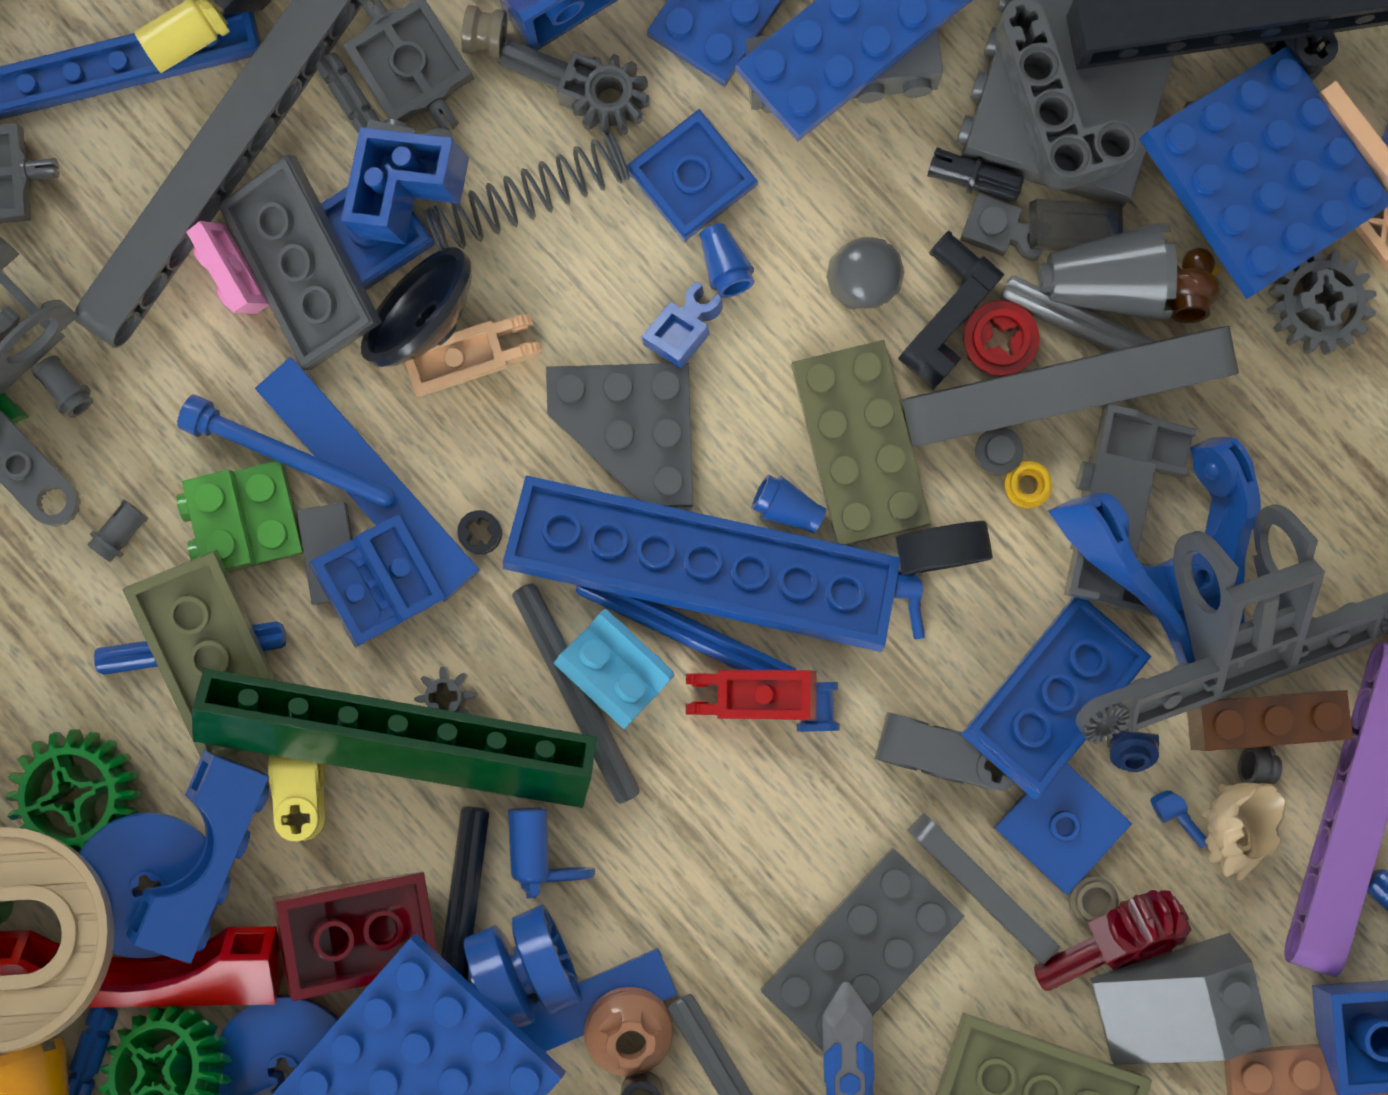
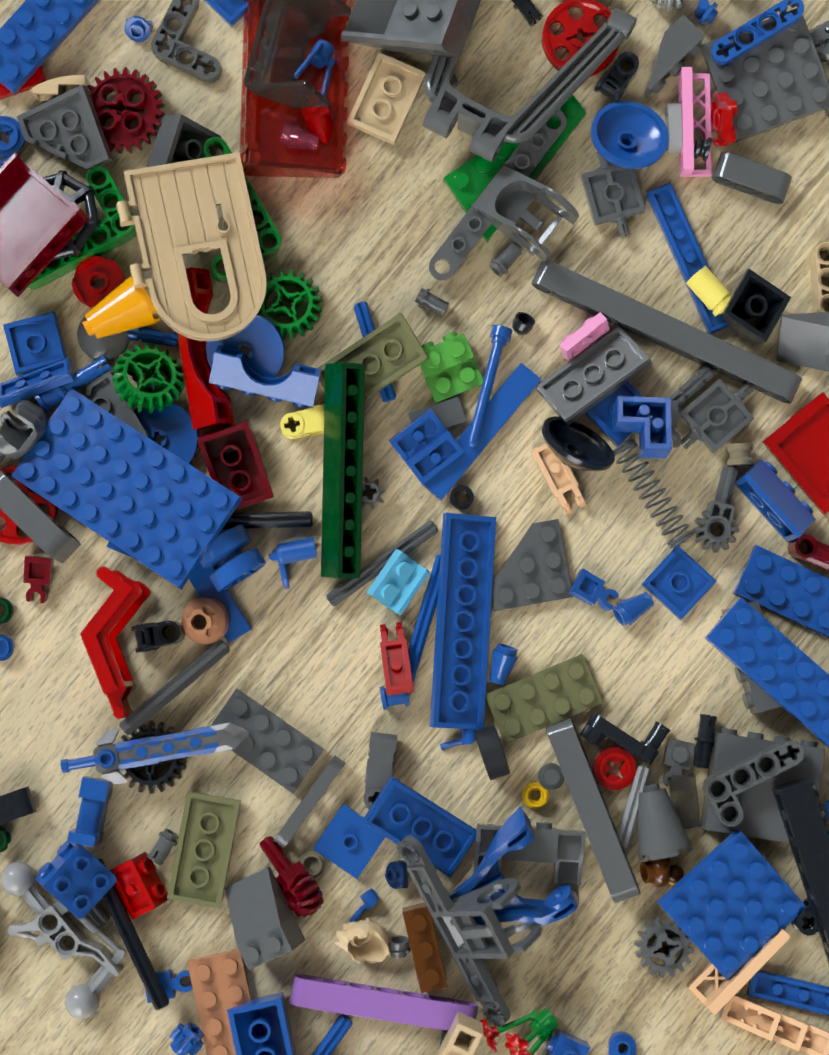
camera: 80 degrees right, 0 degrees up
(184, 374) = (523, 323): none -> black hinge
(865, 273) = (639, 687): dark grey hair -> none

